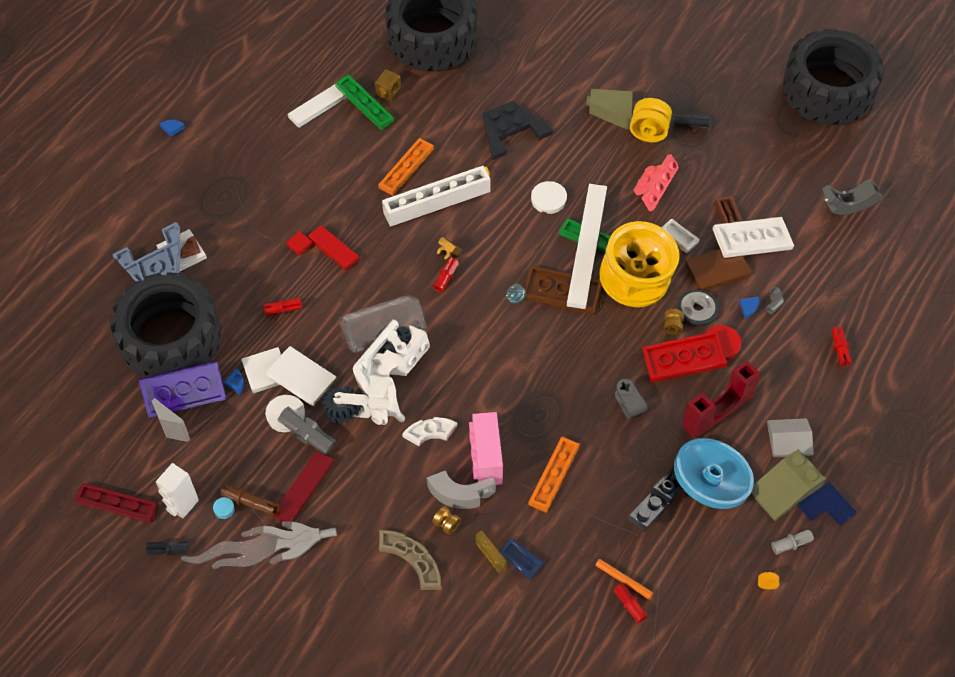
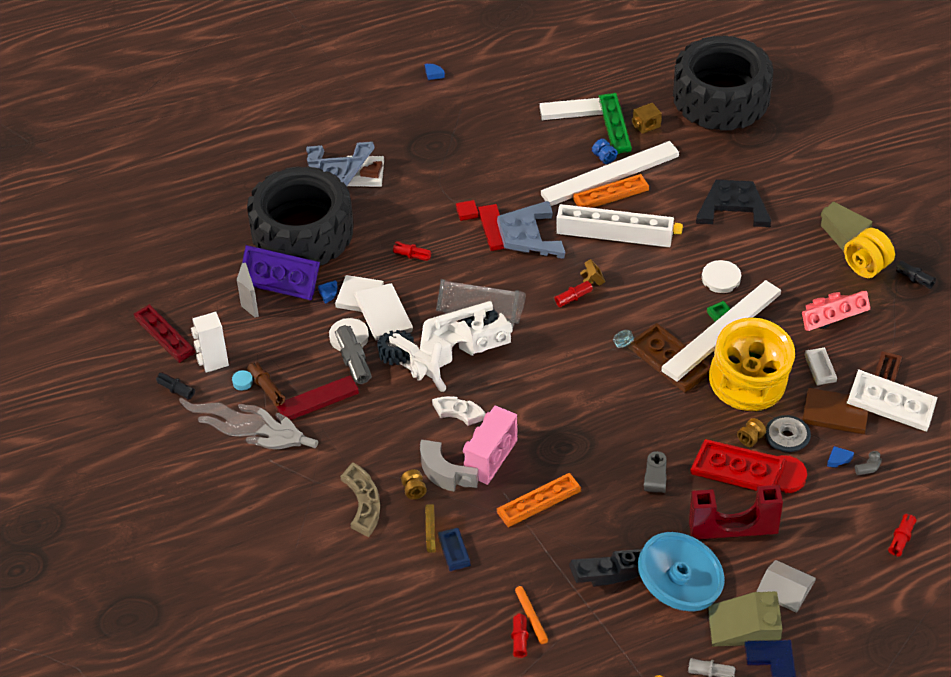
camera: 35 degrees right, 10 degrees down
(362, 241) = (521, 232): none -> sand blue wing
(376, 132) = (604, 151): none -> blue wheel
(392, 150) = (610, 173): none -> white tile

